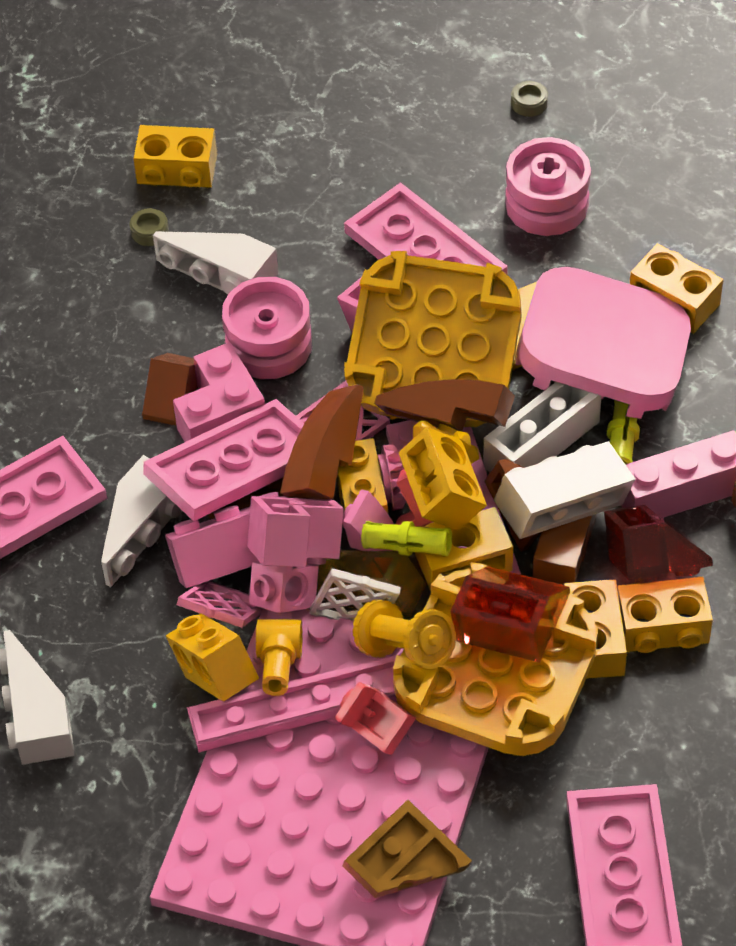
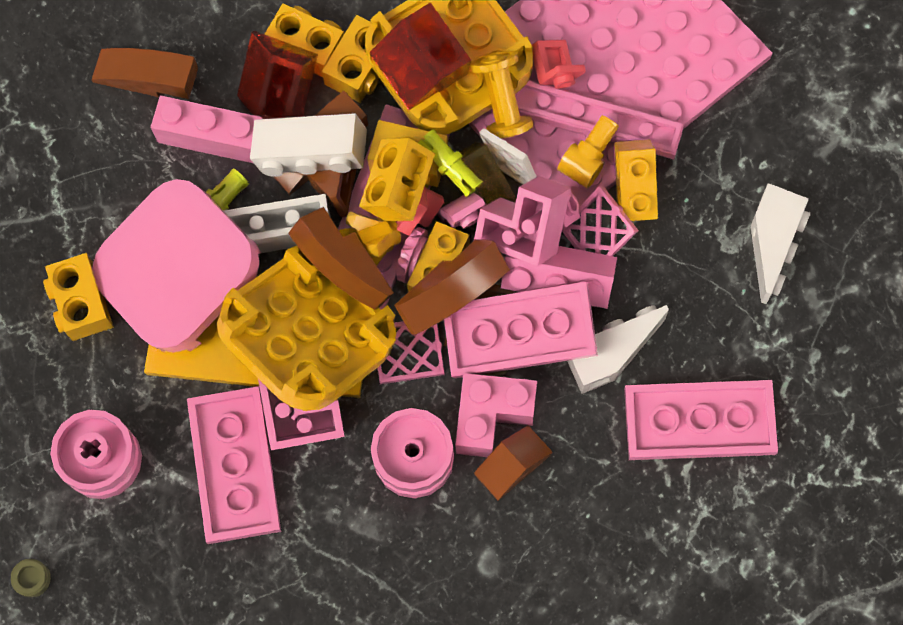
camera: 145 degrees left, 20 degrees up
(216, 258) = (395, 551): white slope -> none

